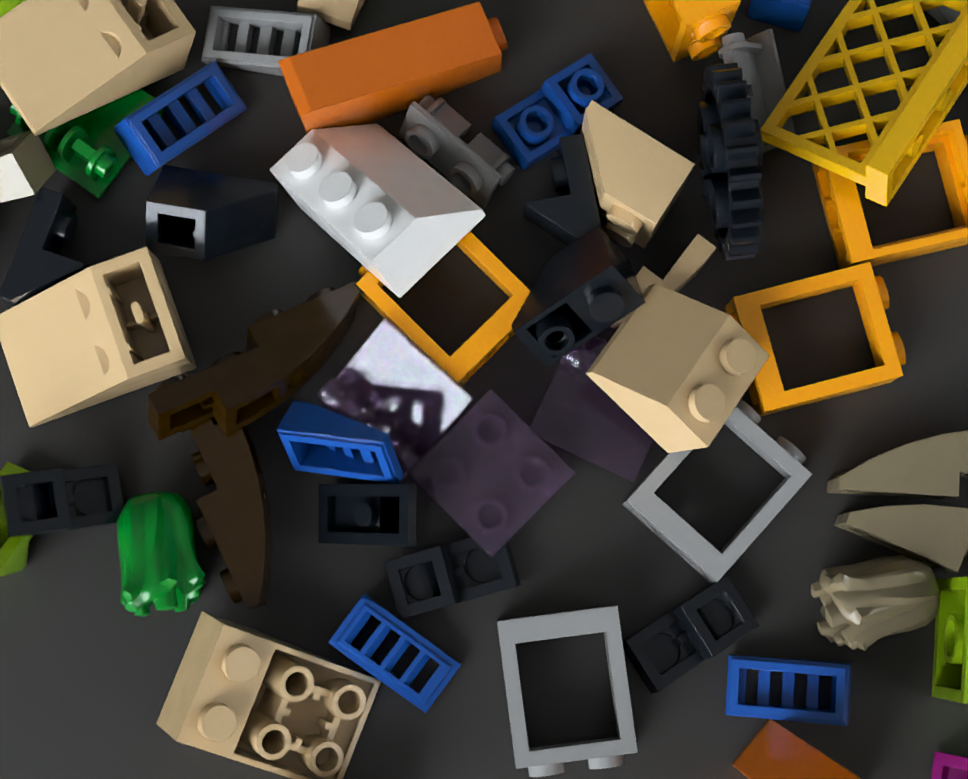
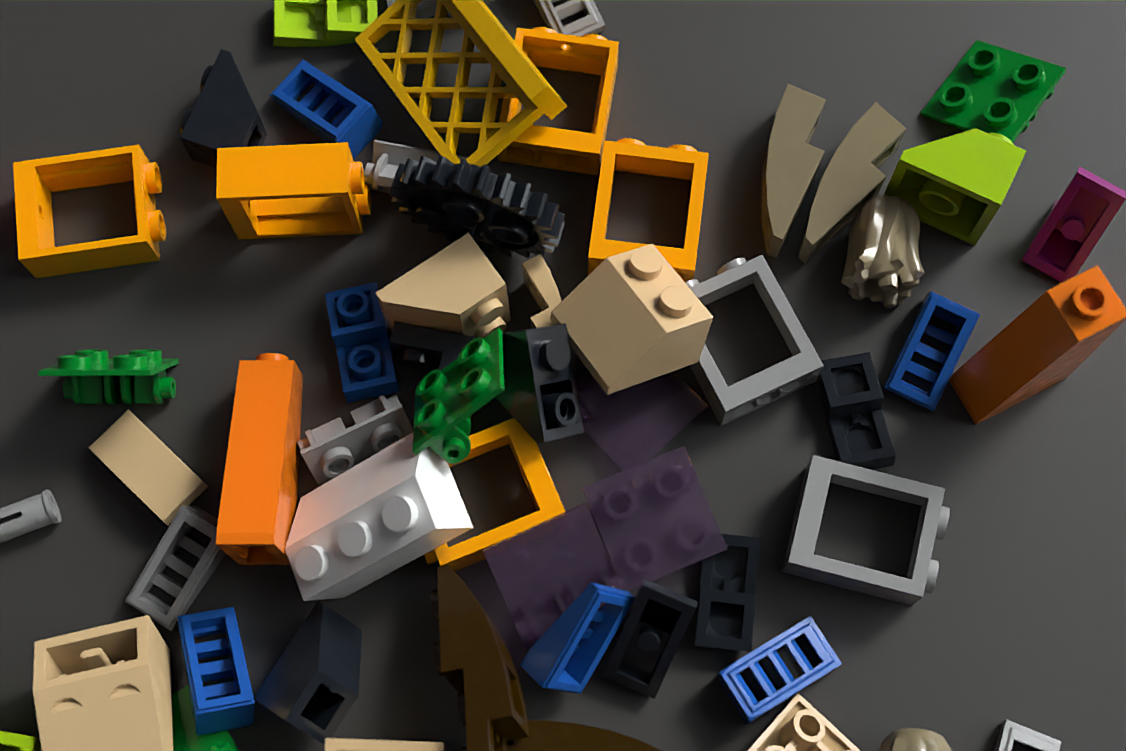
camera: 65 degrees left, 10 degrees down
(518, 224) = (451, 395): none -> green hinge

